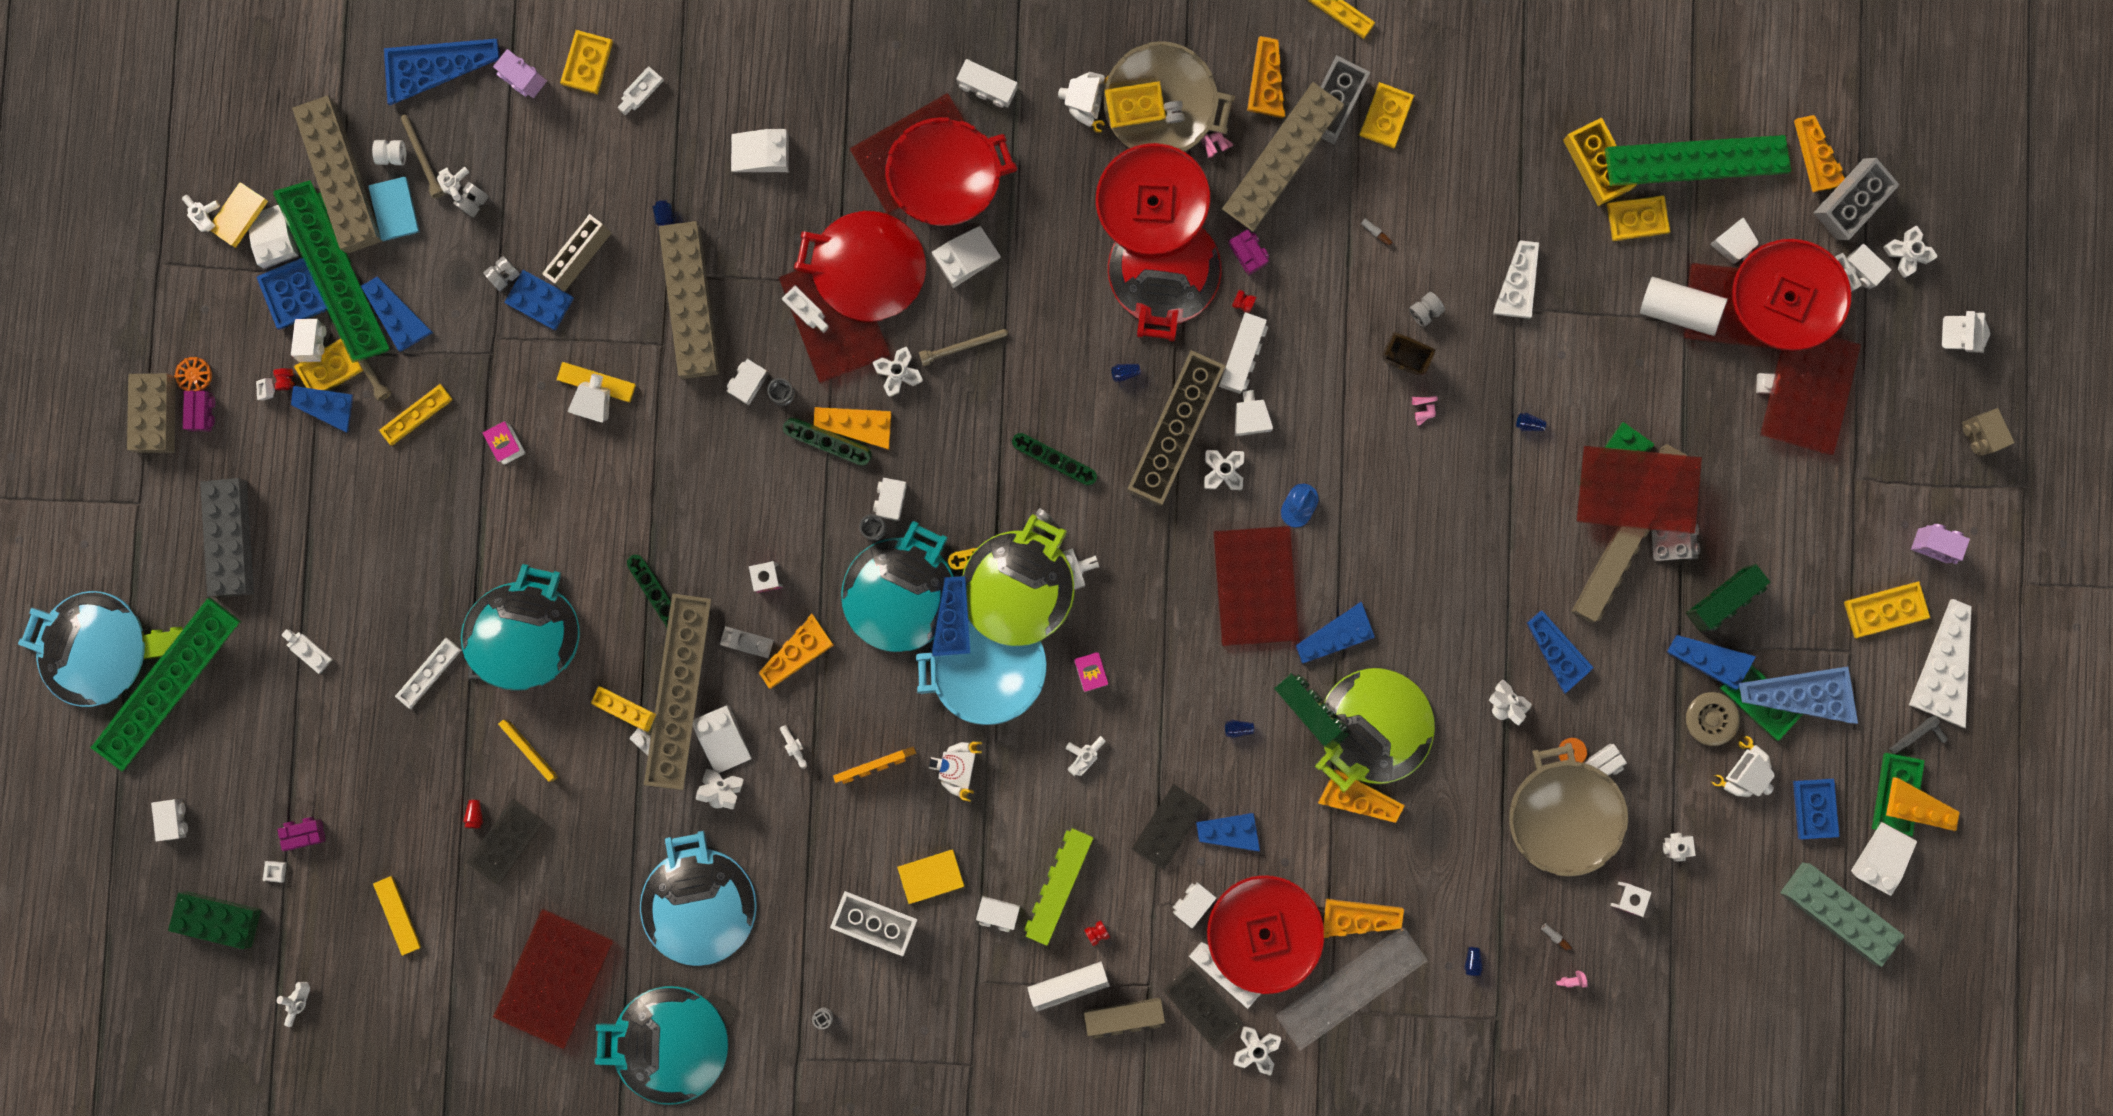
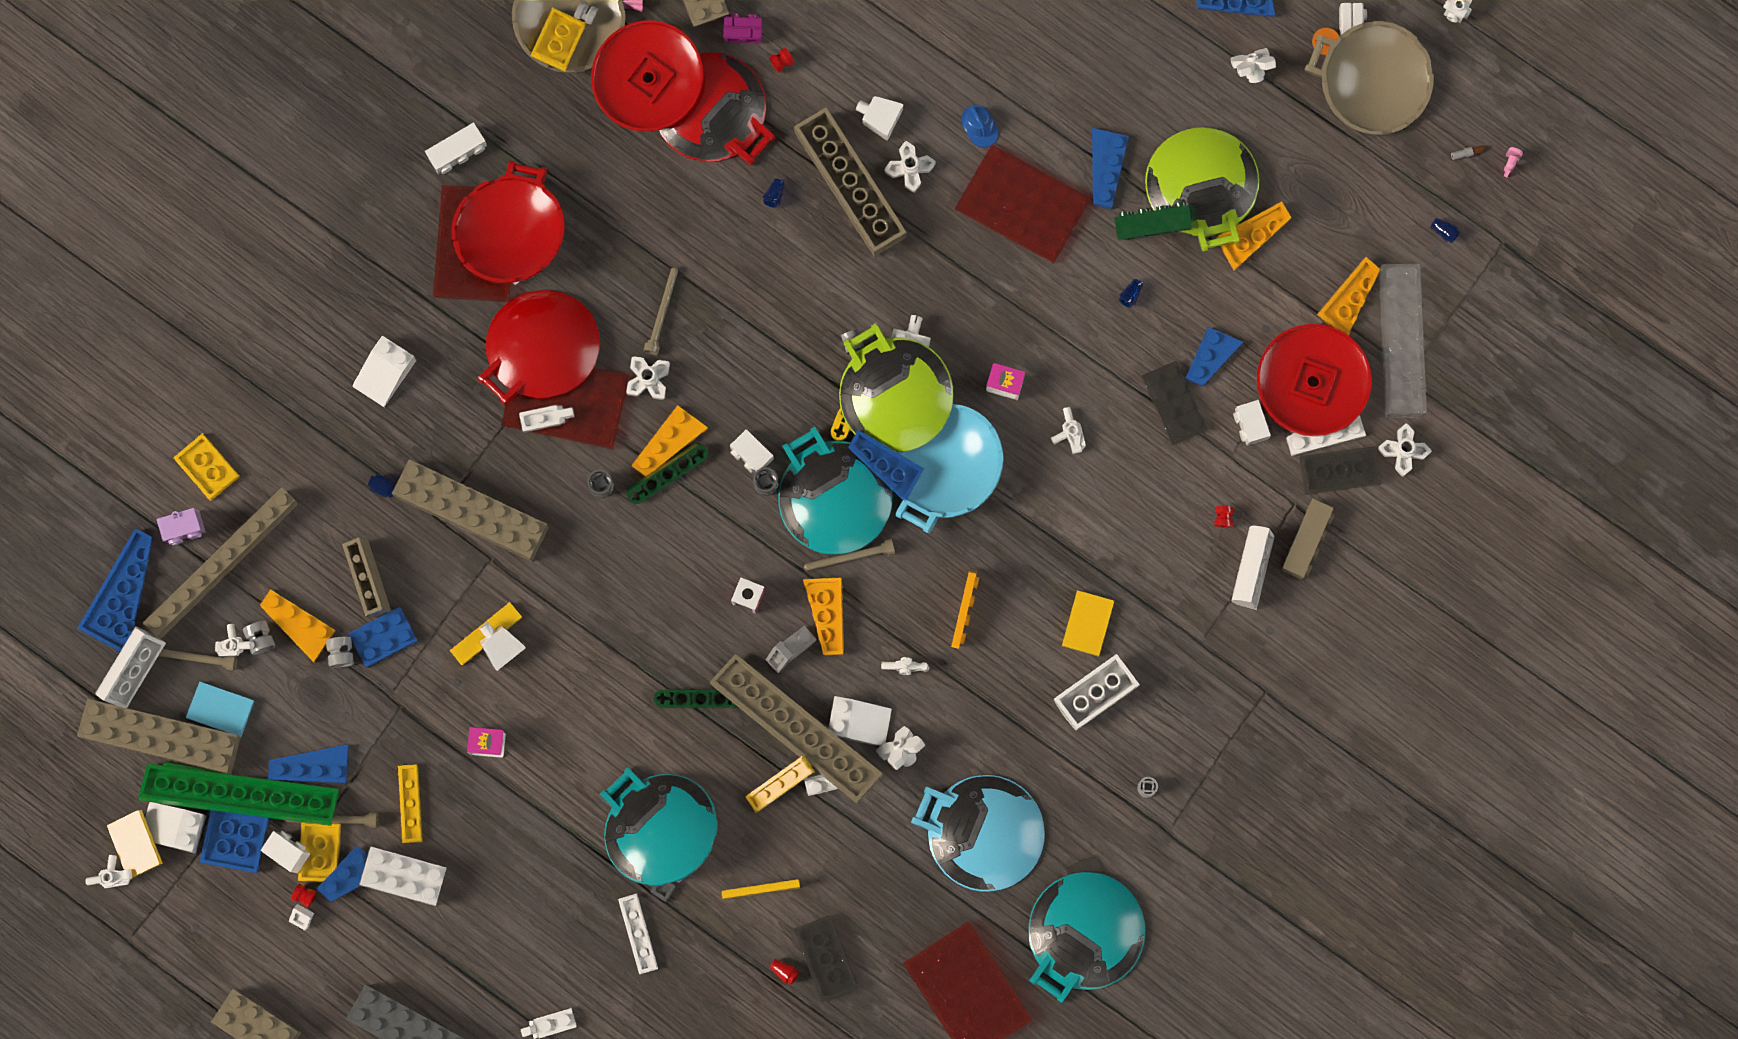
camera: 55 degrees left, 5 degrees down
(193, 374) = (245, 971): orange wheel -> none
(198, 411) = (281, 986): magenta brick -> none
(348, 448) = (402, 876): none -> white brick
(376, 112) = (130, 668): none -> white brick
(389, 152) = (170, 680): white wheel -> none
(504, 224) = (299, 625): none -> light orange wing
(512, 127) = (220, 563): none -> dark tan brick
(640, 90) = (262, 437): white hinge -> none
(747, 381) = (572, 507): white brick -> none
(883, 664) = (885, 548): none -> dark tan piece
(956, 768) = (1012, 542): white torso -> none
(965, 256) = (589, 260): white slope -> none
(997, 913) = (1154, 587): white brick -> none
(1047, 452) = (814, 291): dark green beam -> none
(1059, 886) = (1165, 522): lime brick -> none
(1085, 98) = (524, 76): white torso -> none
(1243, 352) = (823, 88): white brick -> none
(1625, 904) = (1477, 78): white piece -> none

